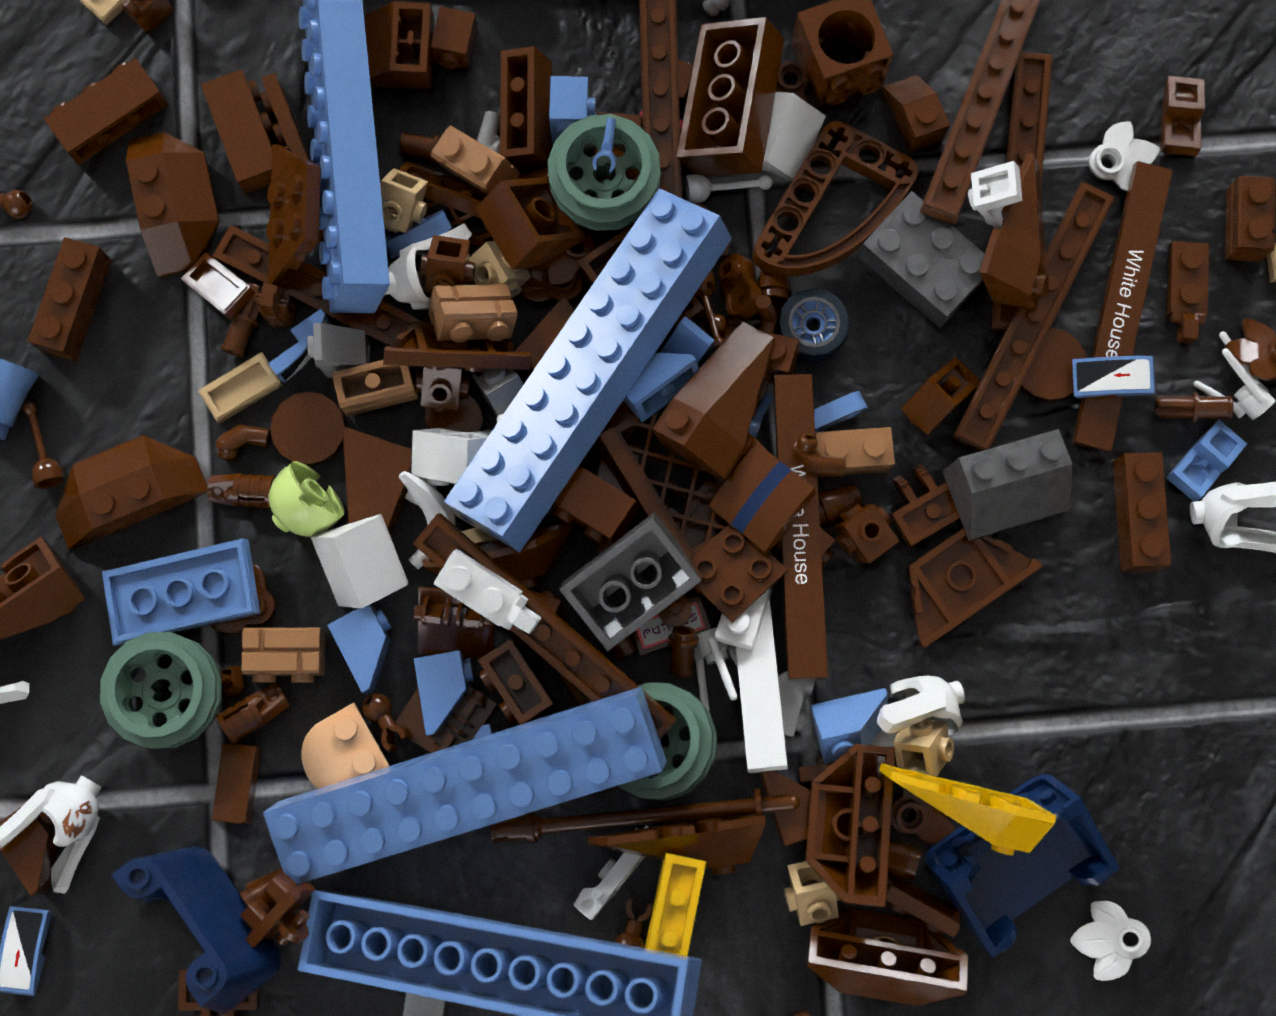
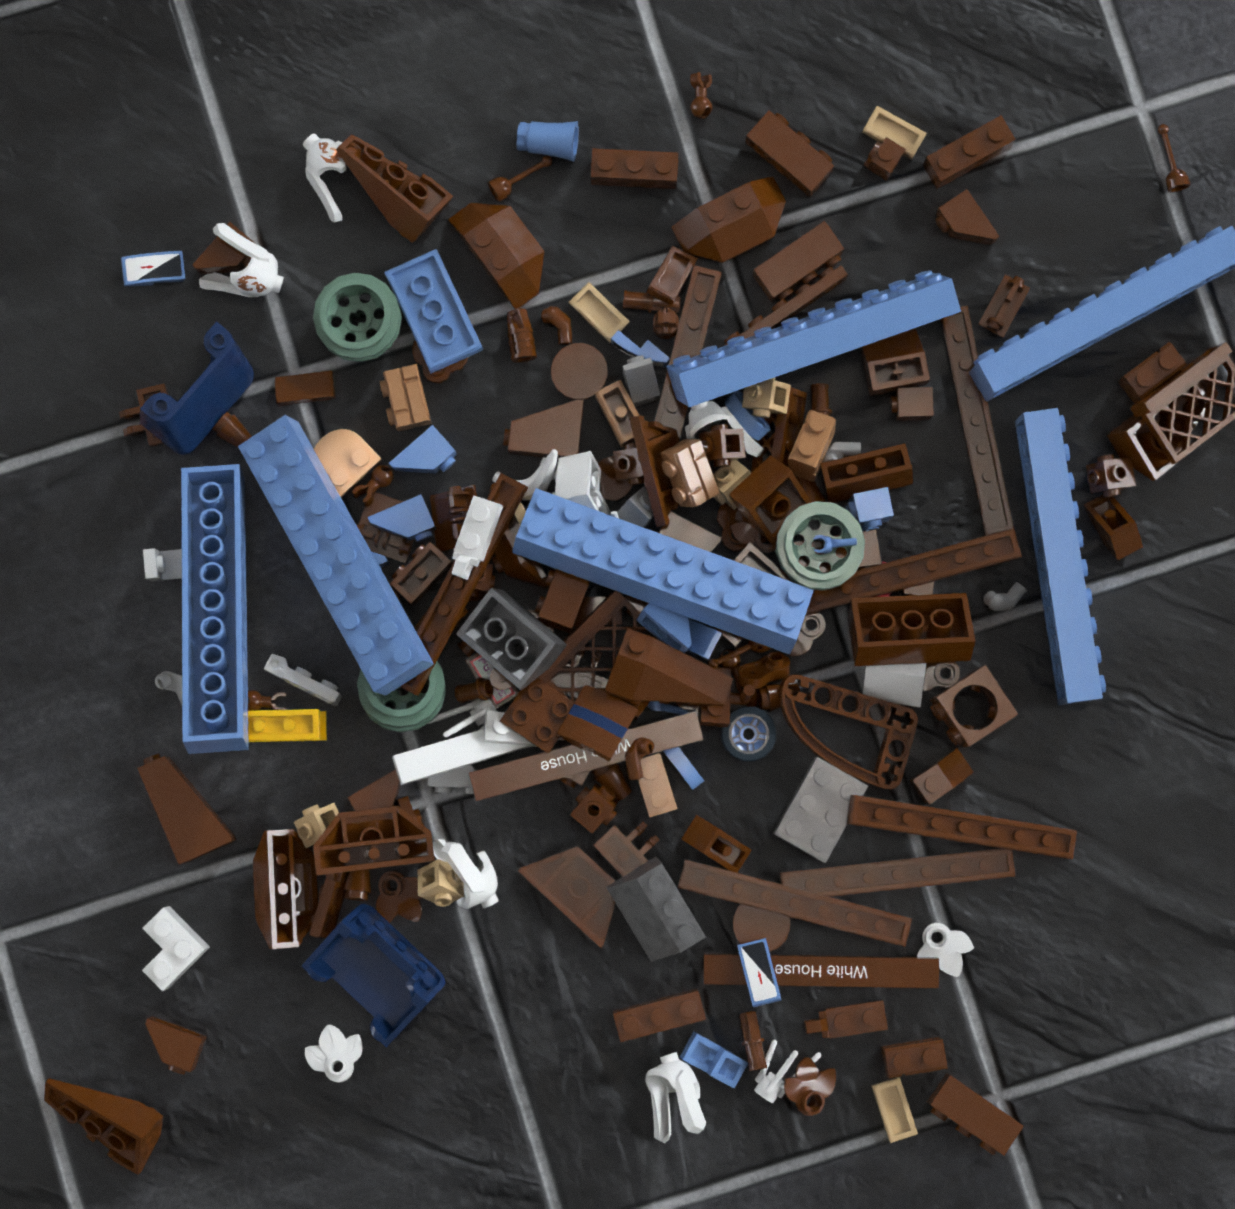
camera: 80 degrees right, 5 degrees up
(232, 680) = (378, 365): reddish brown rock -> none
(252, 712) = (358, 386): reddish brown hinge -> none
(282, 918) = (209, 437): reddish brown hips -> none
(293, 212) = (737, 318): reddish brown wing -> none
(302, 503) = (520, 382): yellowish green cylinder -> none
(360, 562) = (484, 437): white slope -> none
(532, 826) = (321, 613): reddish brown bar -> none
(698, 187) = (838, 622): white hinge -> none
(716, 840) = (337, 742): reddish brown wedge -> none
(847, 722) = (448, 824): medium blue slope -> none
(995, 189) = (876, 849): white bracket -> none
(996, 816) = (401, 939): yellow wedge -> none
(1016, 253) = (832, 878): reddish brown wedge -> none
(1182, 116) = (990, 989): reddish brown slope -> none

